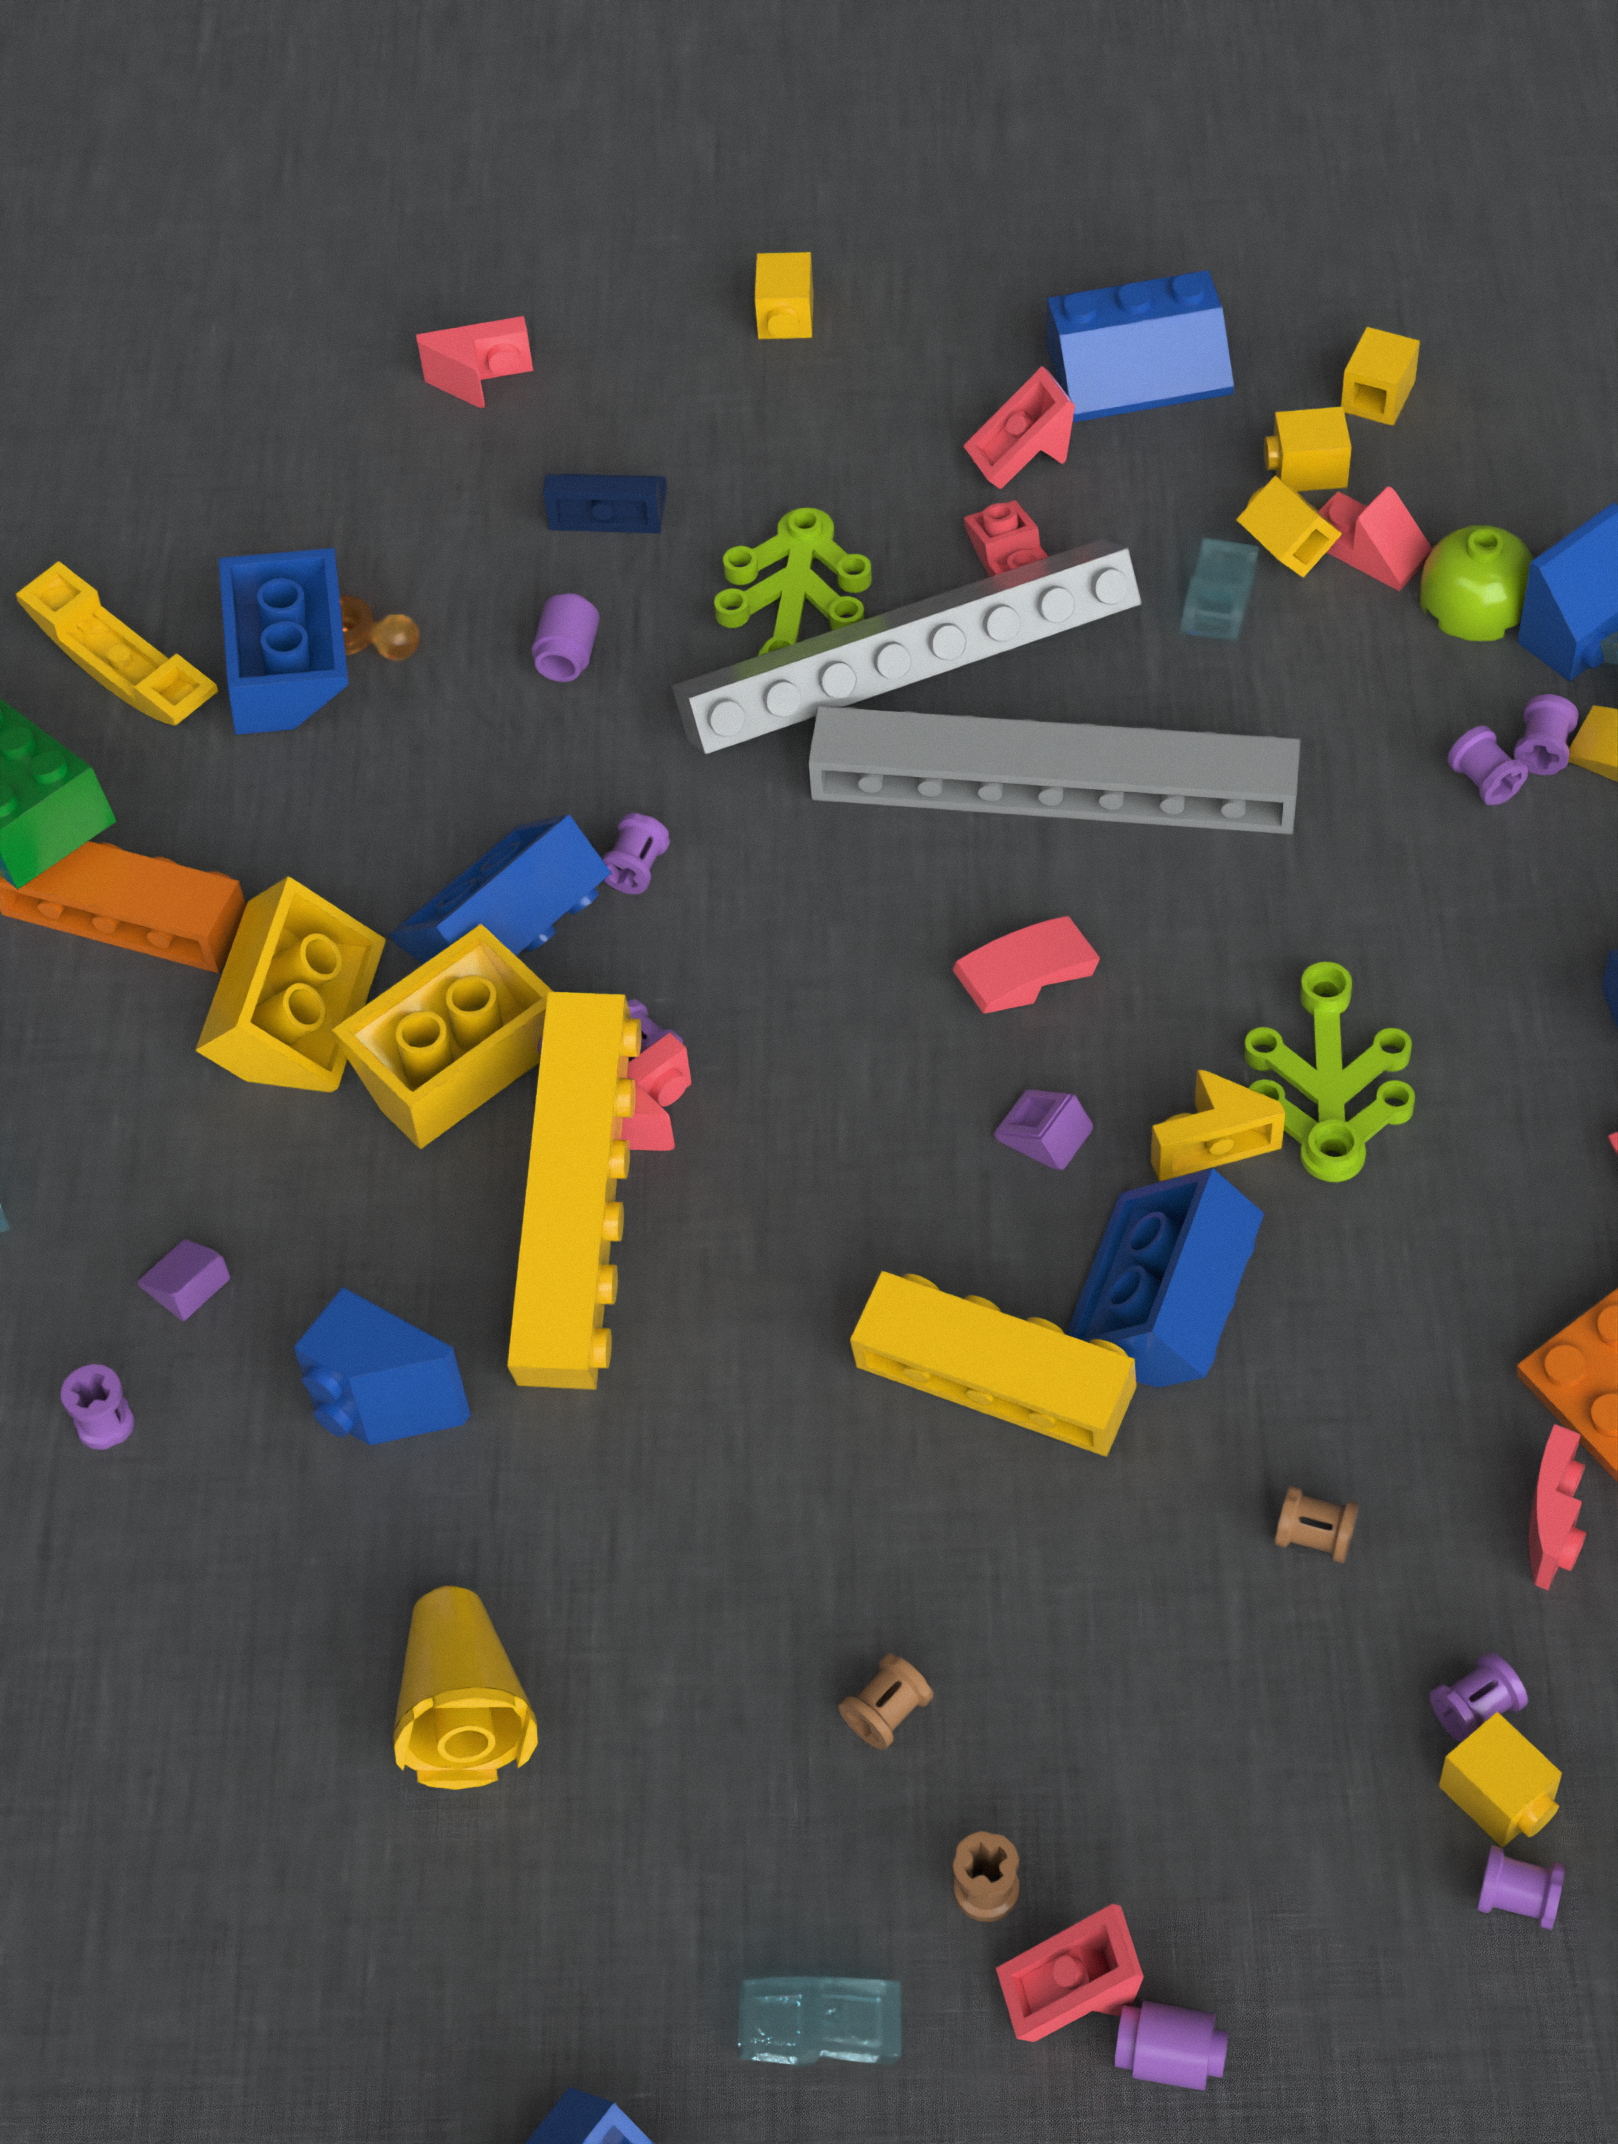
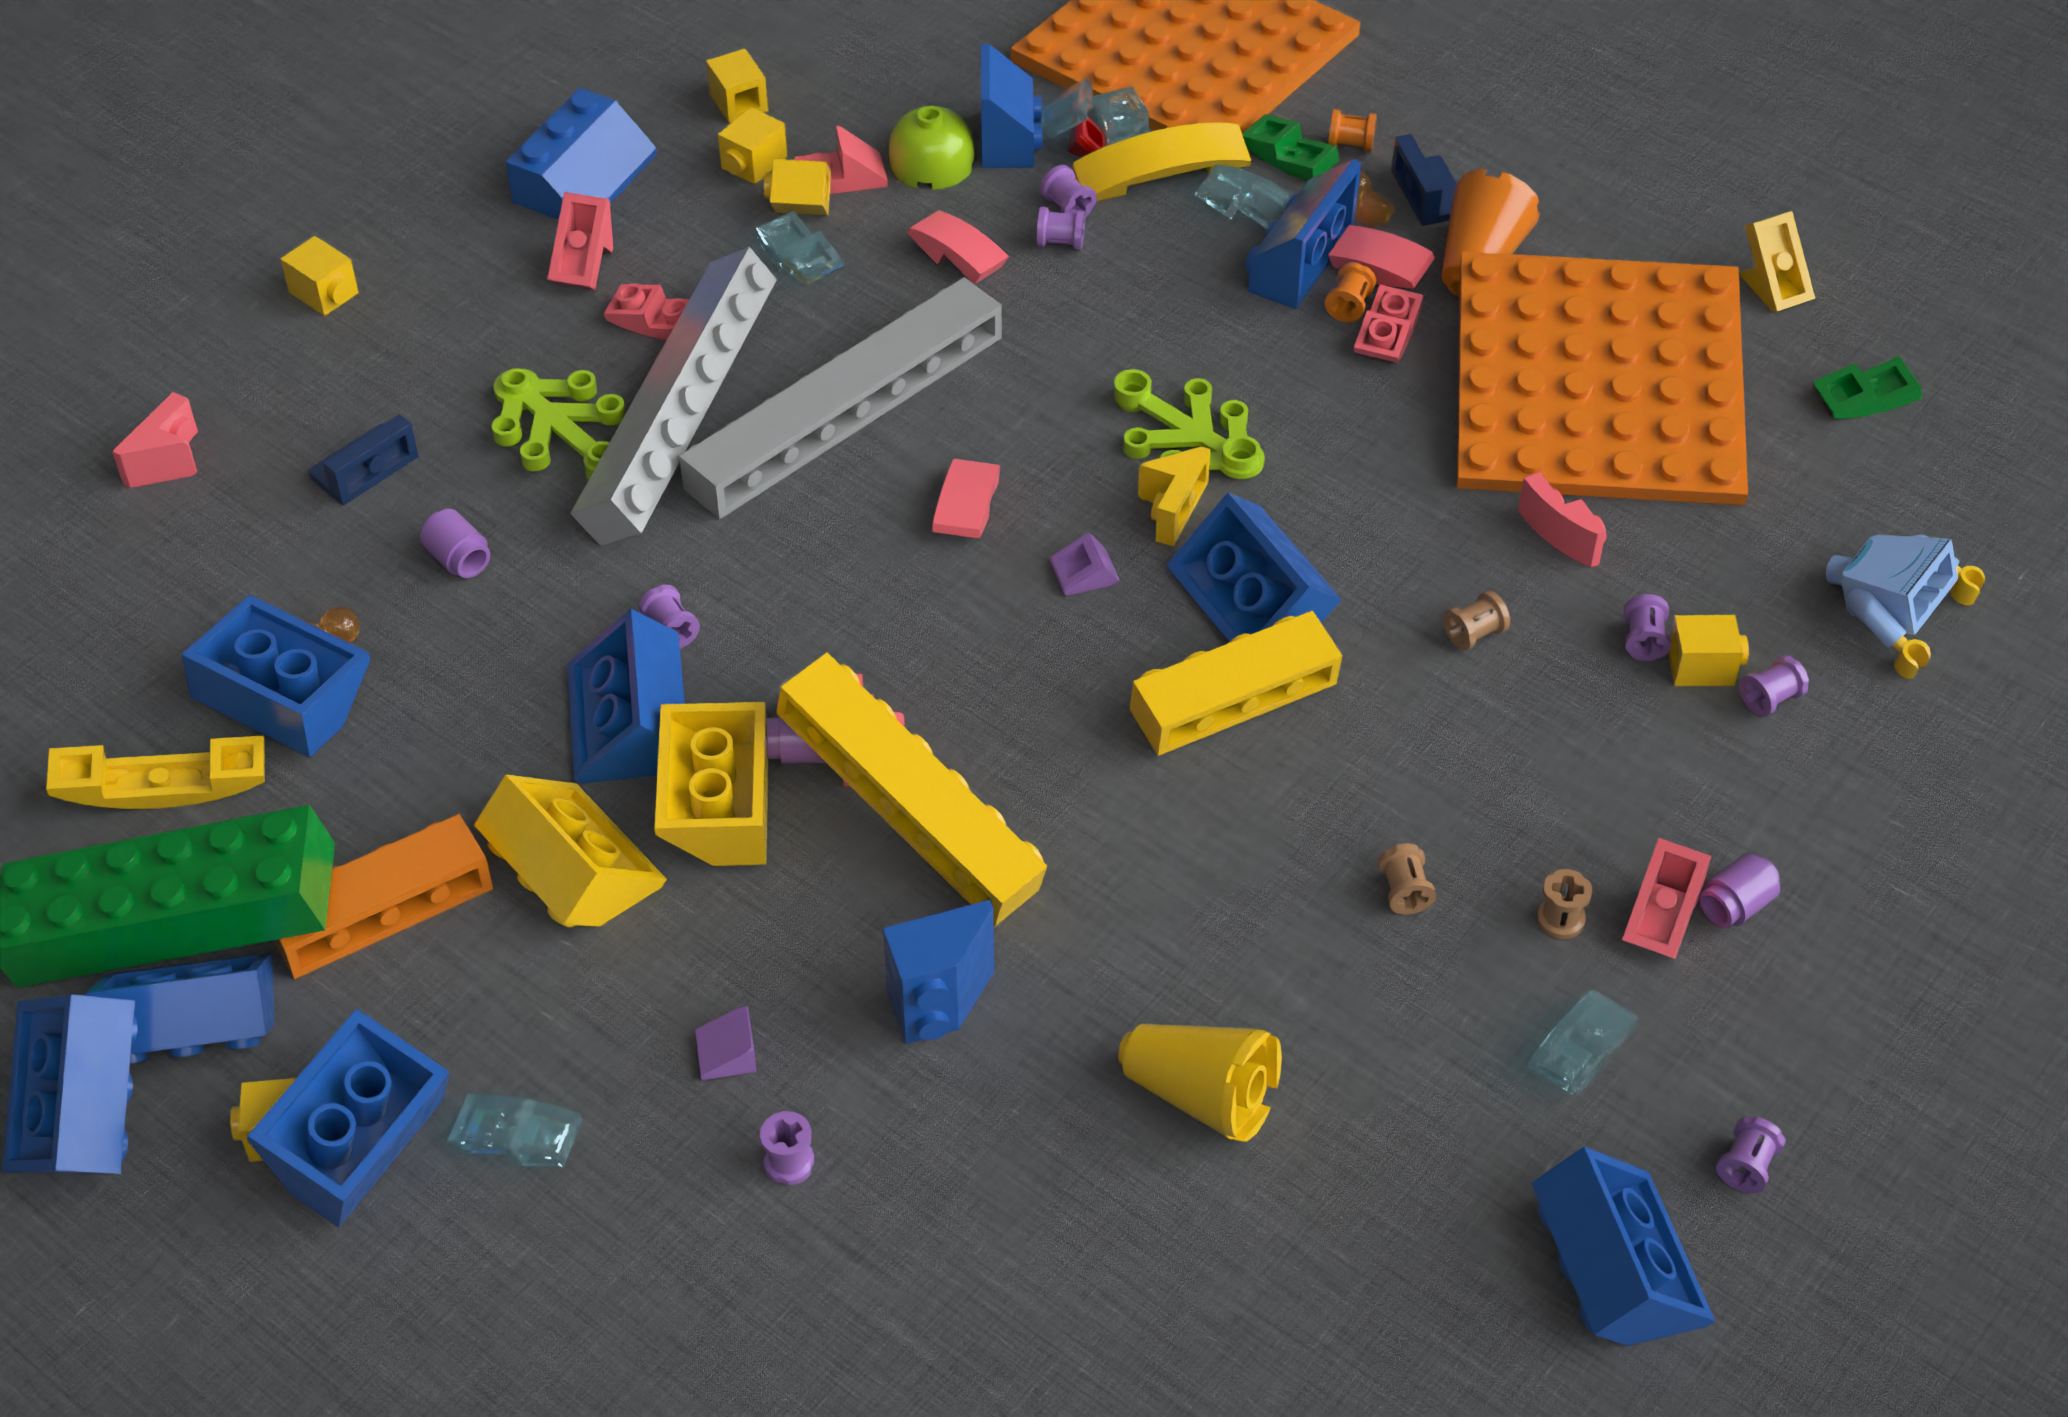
camera: 55 degrees left, 5 degrees down
(1363, 704) = (965, 246): none -> coral slope

